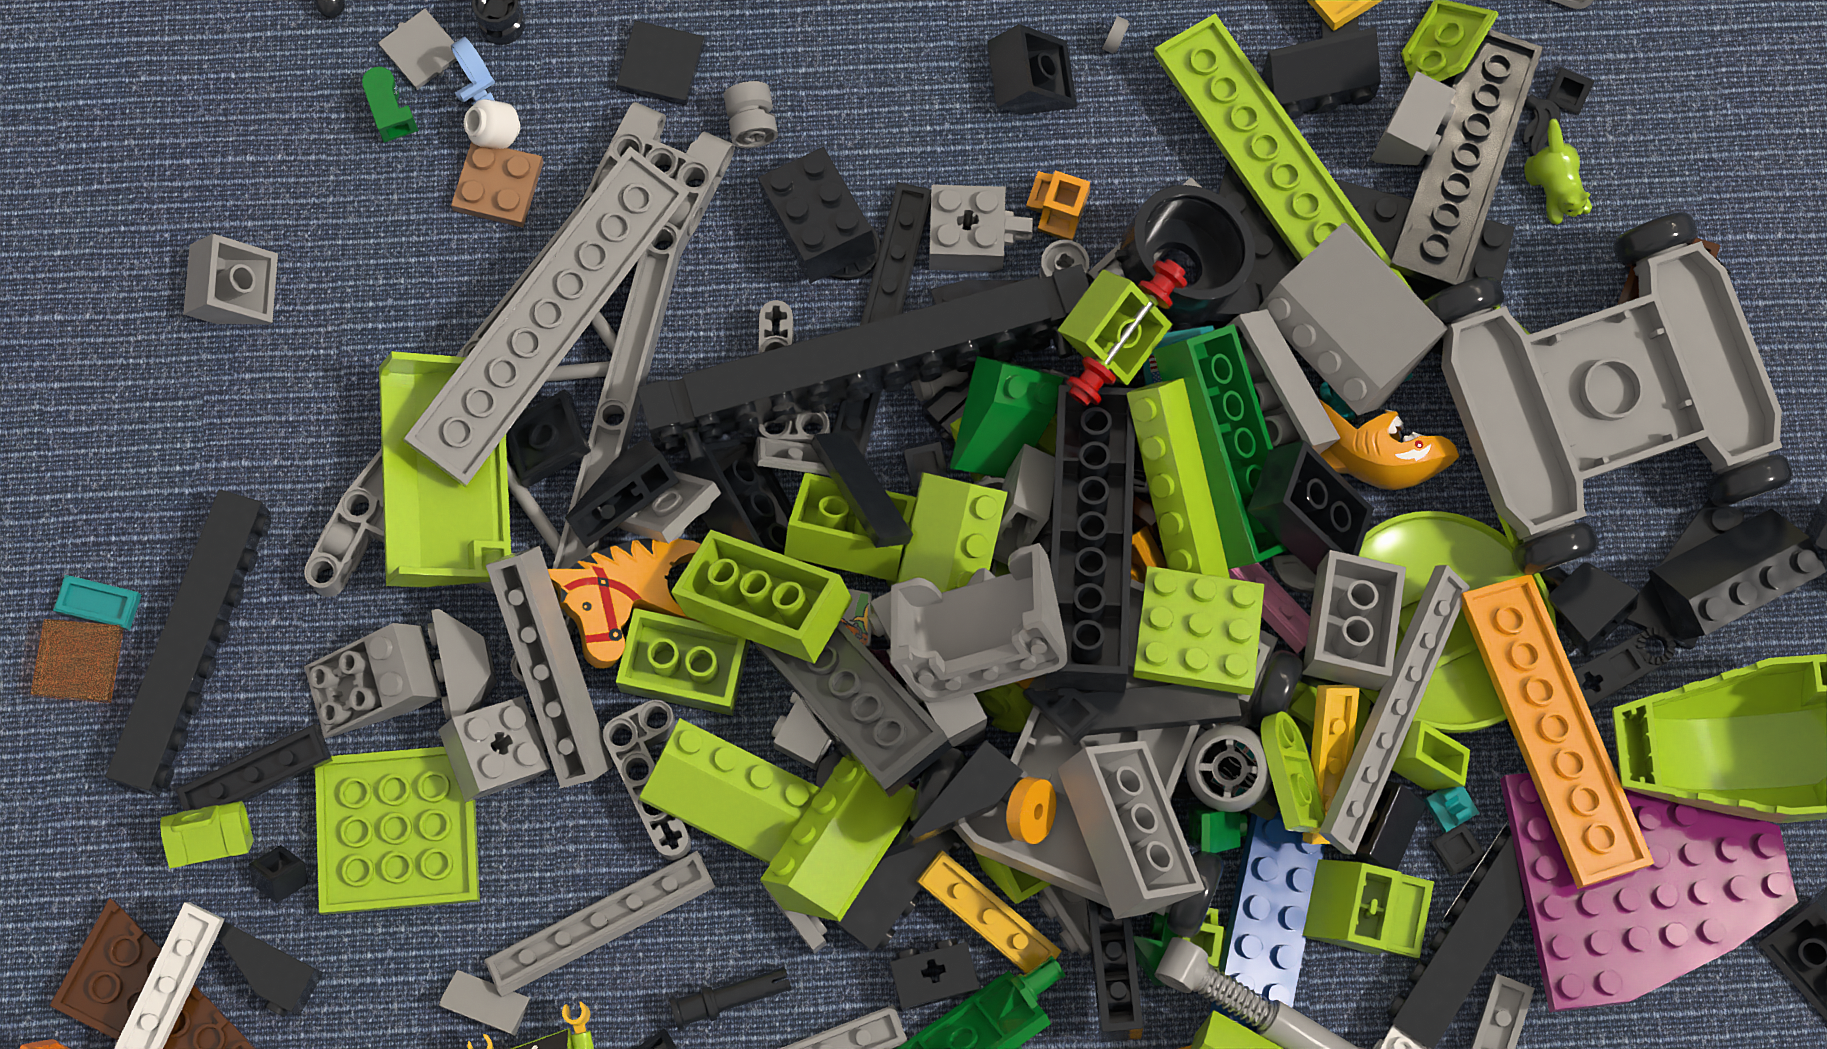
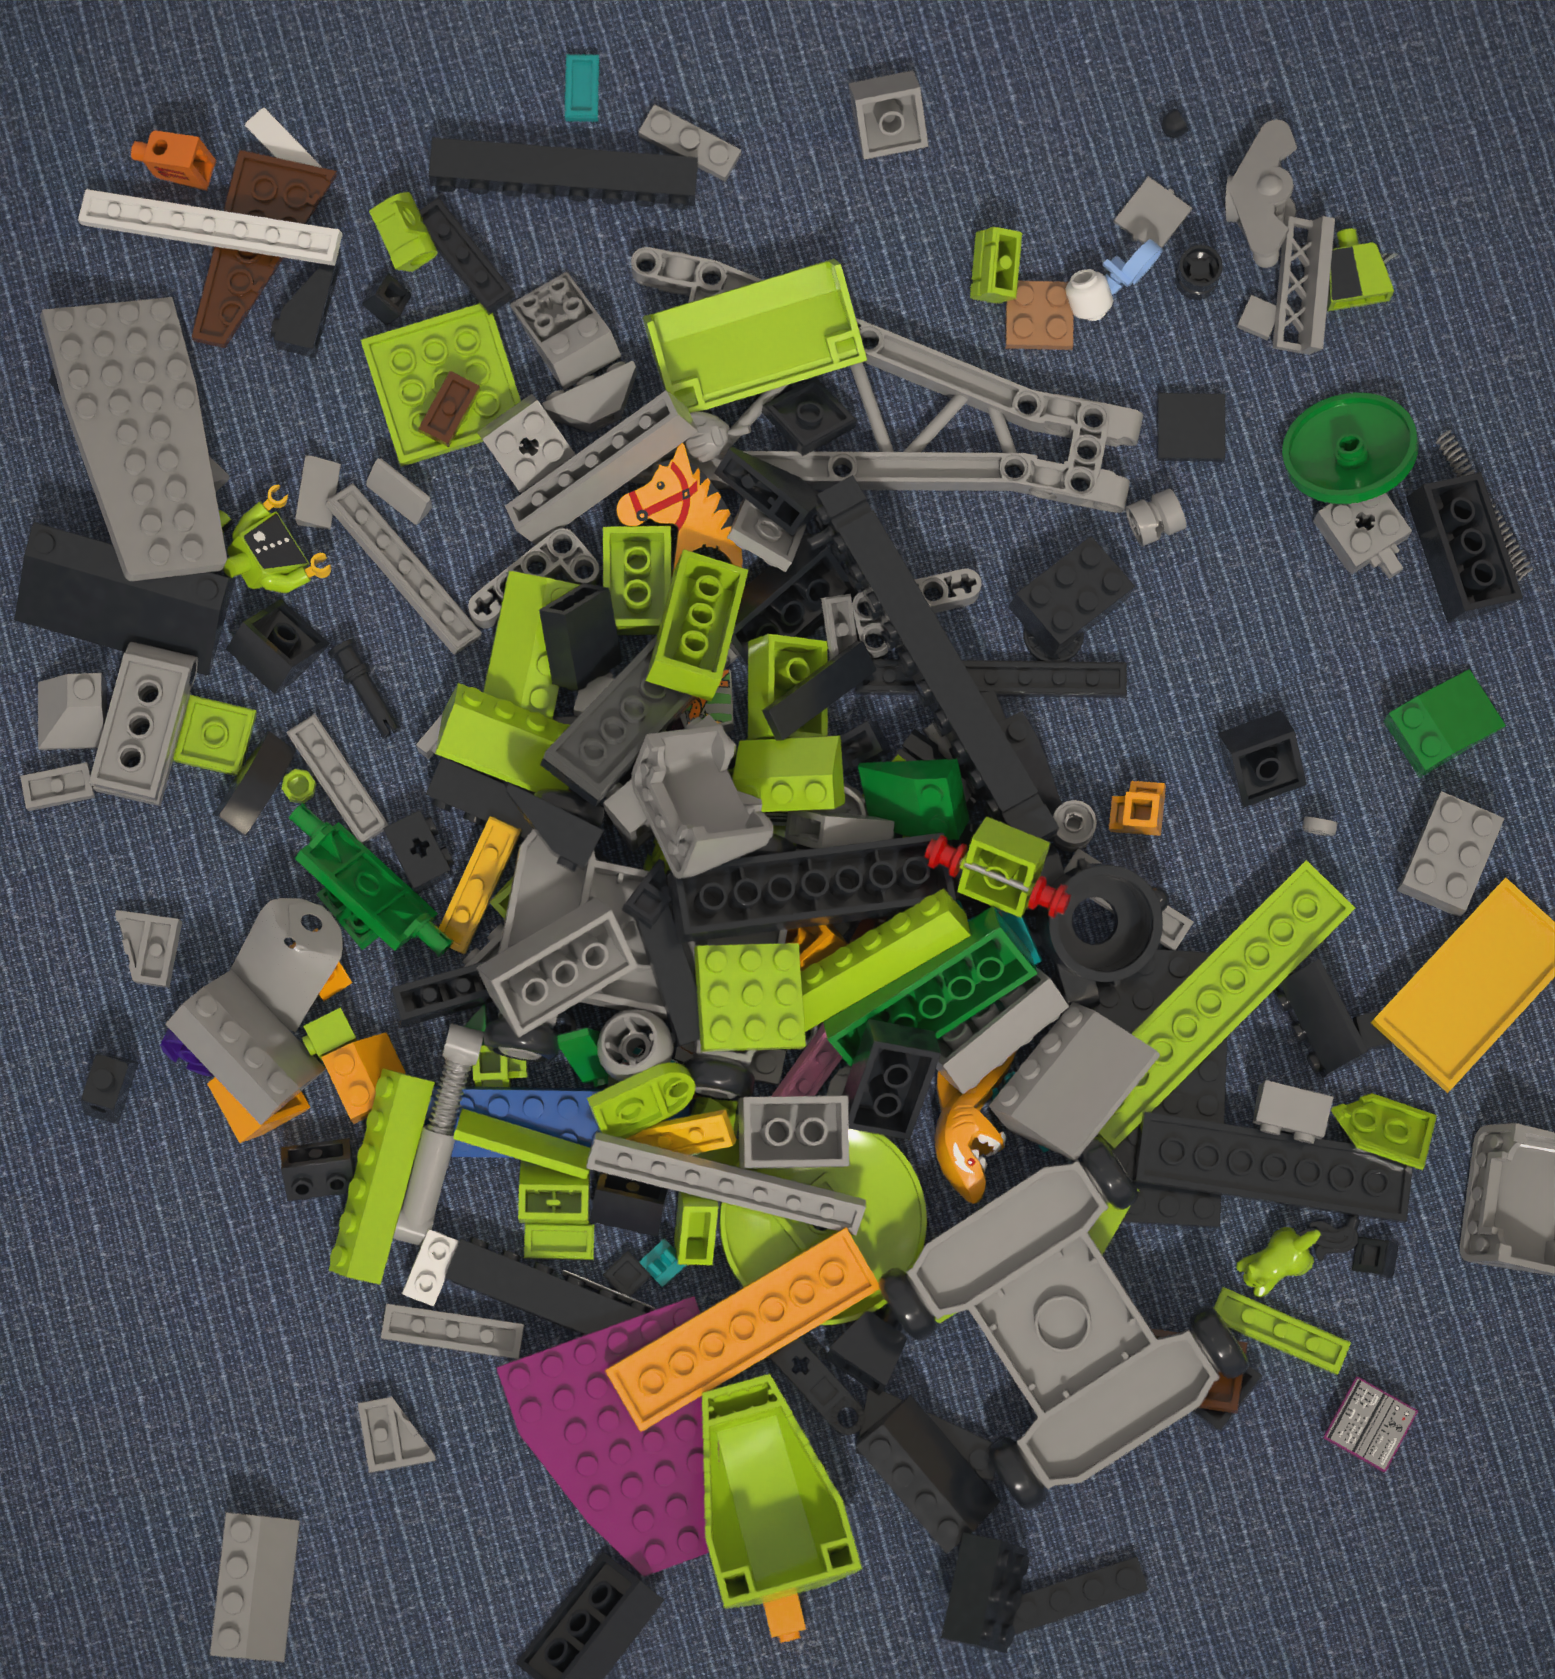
camera: 75 degrees right, 5 degrees up
(49, 960) = (277, 139): none -> white sticker
(77, 661) = (527, 86): clear orange tile -> none
(193, 501) = (688, 140): none -> light grey plate
(382, 97) = (1086, 198): green leg -> none
(430, 826) = (449, 409): none -> reddish brown plate
(432, 209) = (996, 265): none -> lime brick
(508, 908) = (398, 492): none -> light grey slope
(545, 317) = (912, 387): light grey plate -> none
(547, 536) = (712, 436): none -> light grey piece
(739, 730) = (580, 636): none -> black brick
(990, 226) = (1090, 754): light grey hinge -> none
(1031, 810) = (556, 883): light orange piece -> none
(1300, 925) = (522, 1143): none -> lime tile
(1630, 196) = (1281, 1331): none -> lime tile
(1743, 130) = (1370, 1424): none -> light grey tile

